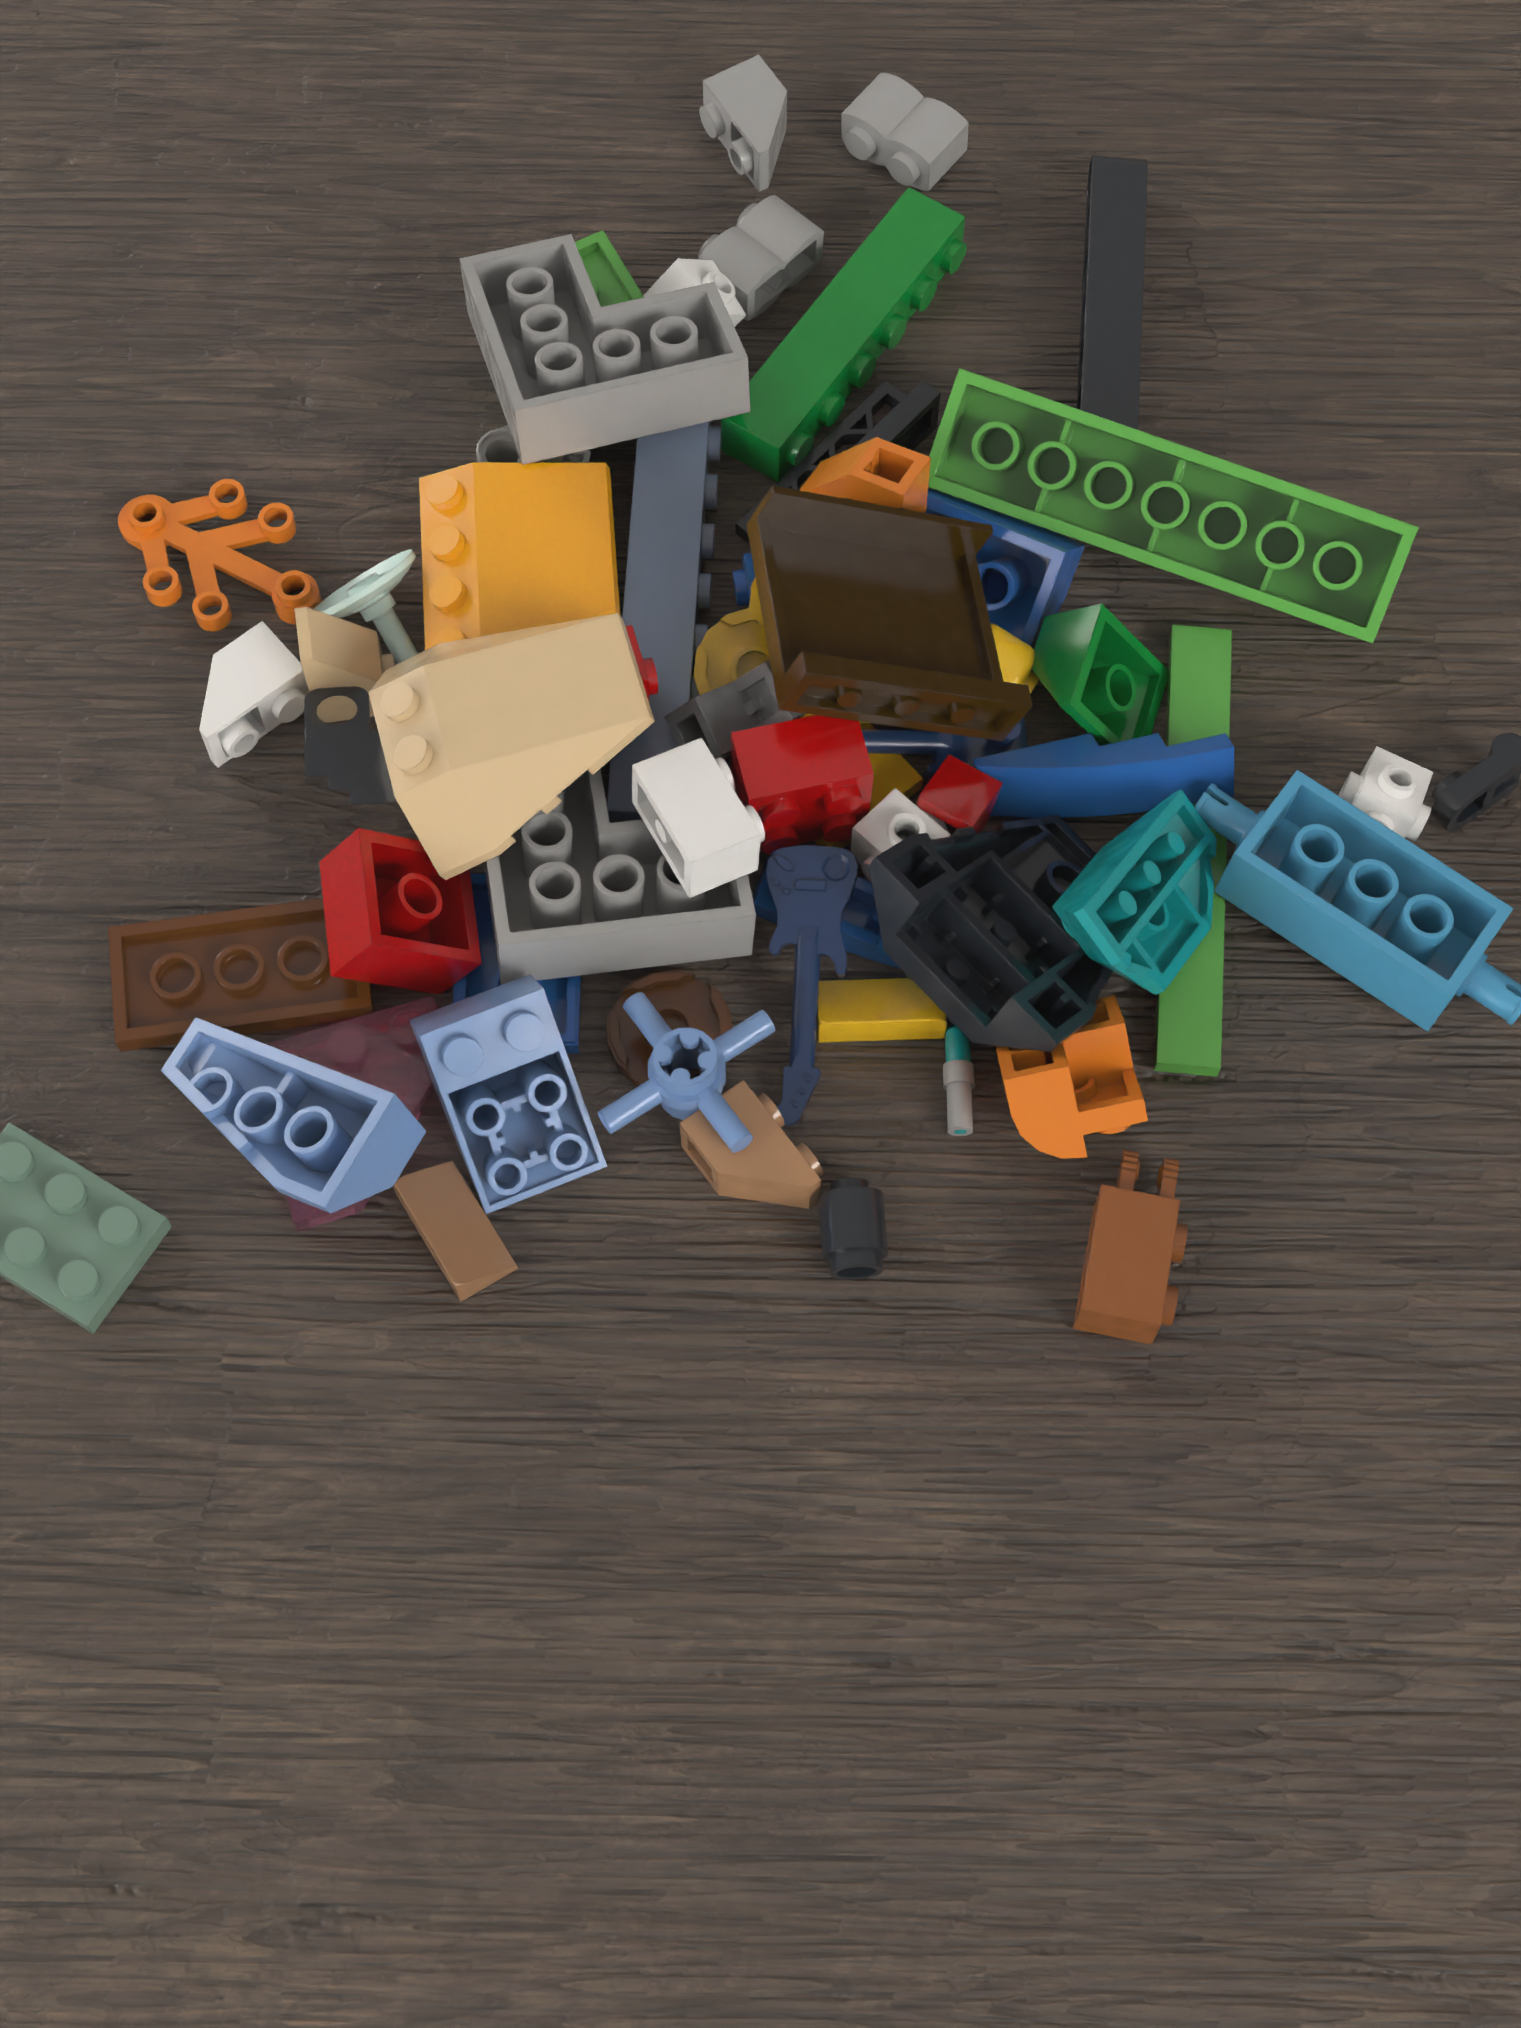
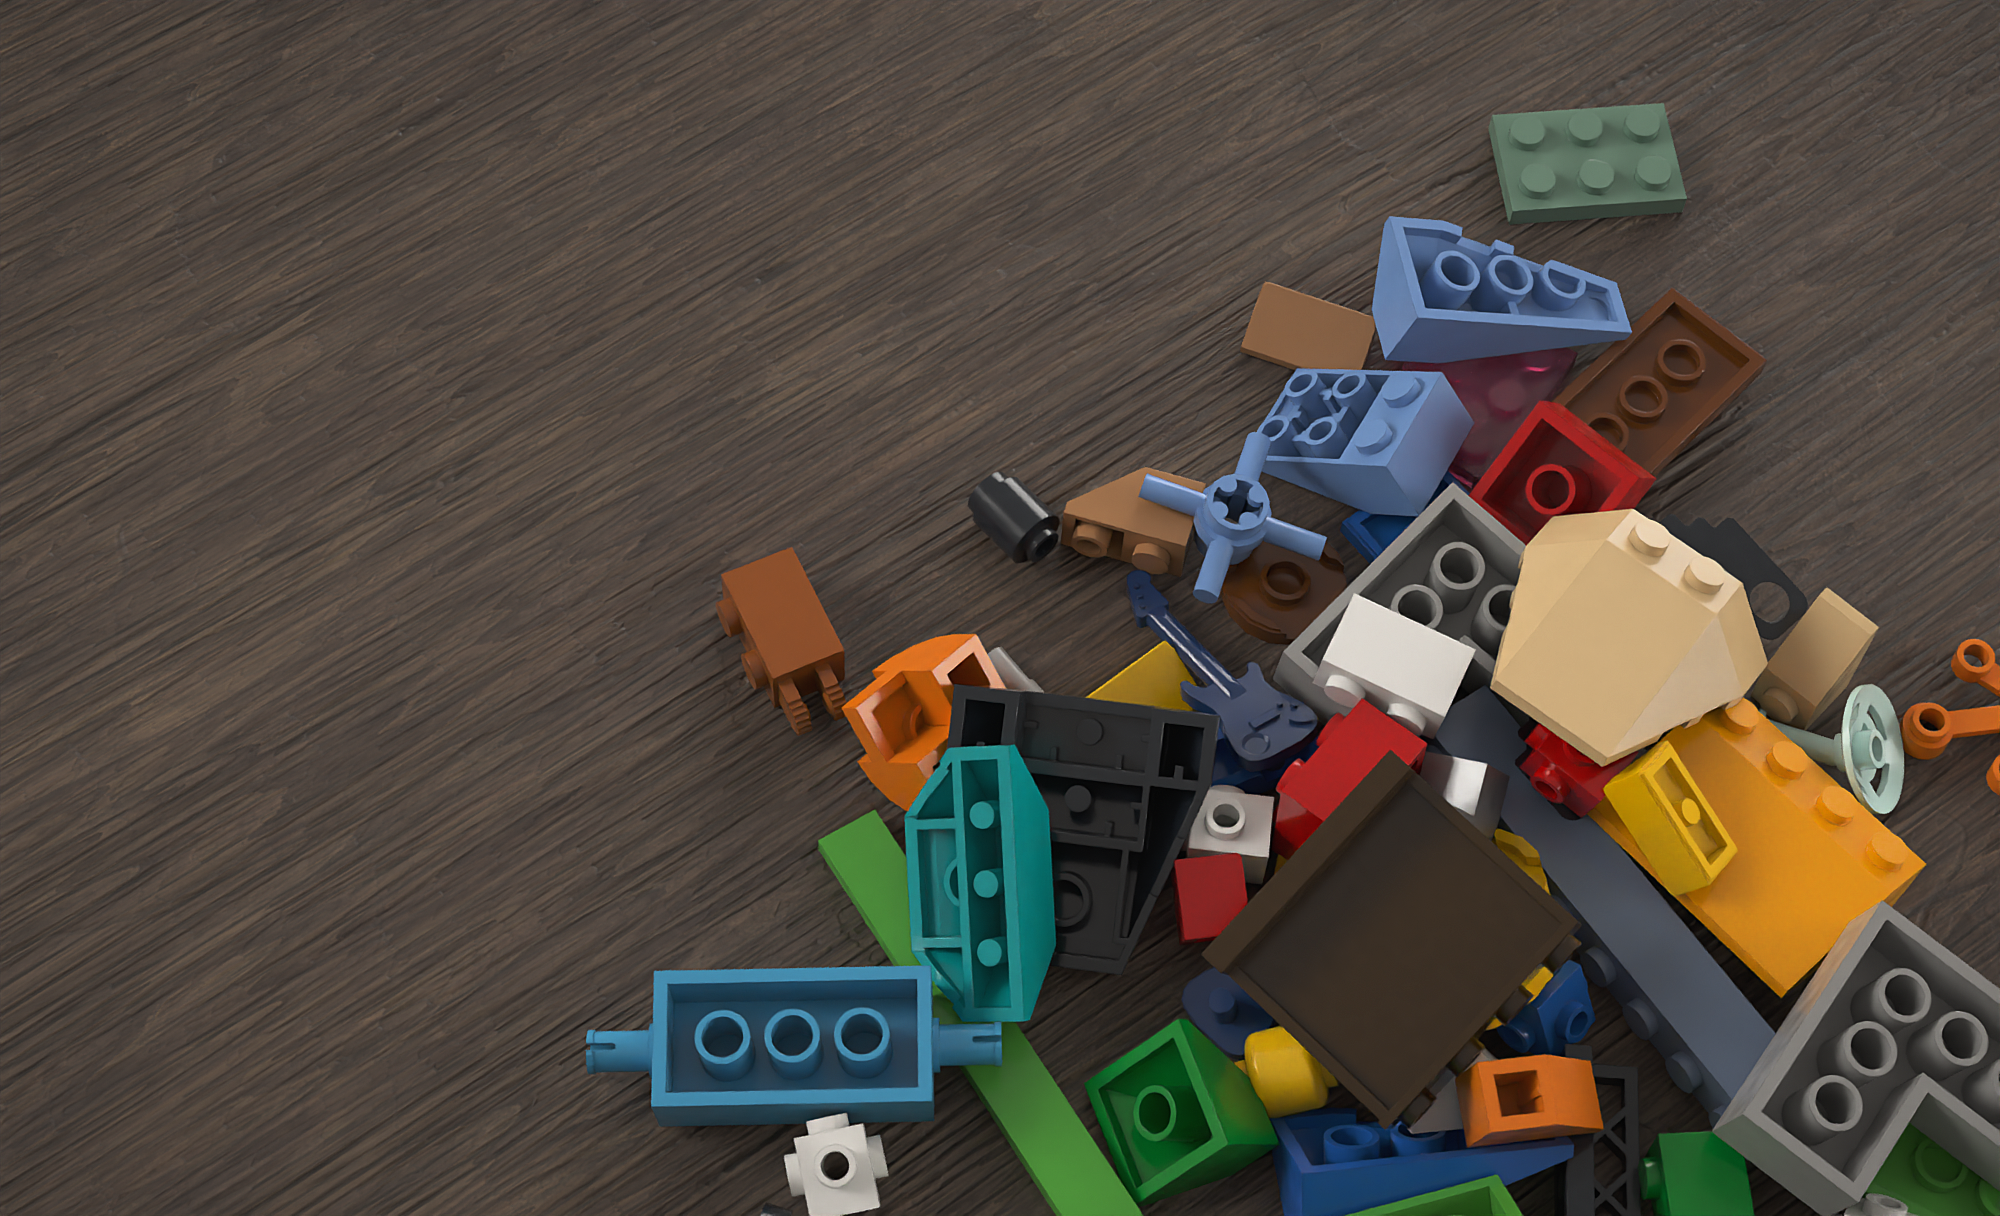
camera: 140 degrees right, 5 degrees down
(249, 693) = (1878, 592): white slope -> none
(586, 582) = (1671, 820): none -> yellow slope
(1112, 779) = (1116, 1014): blue slope -> none

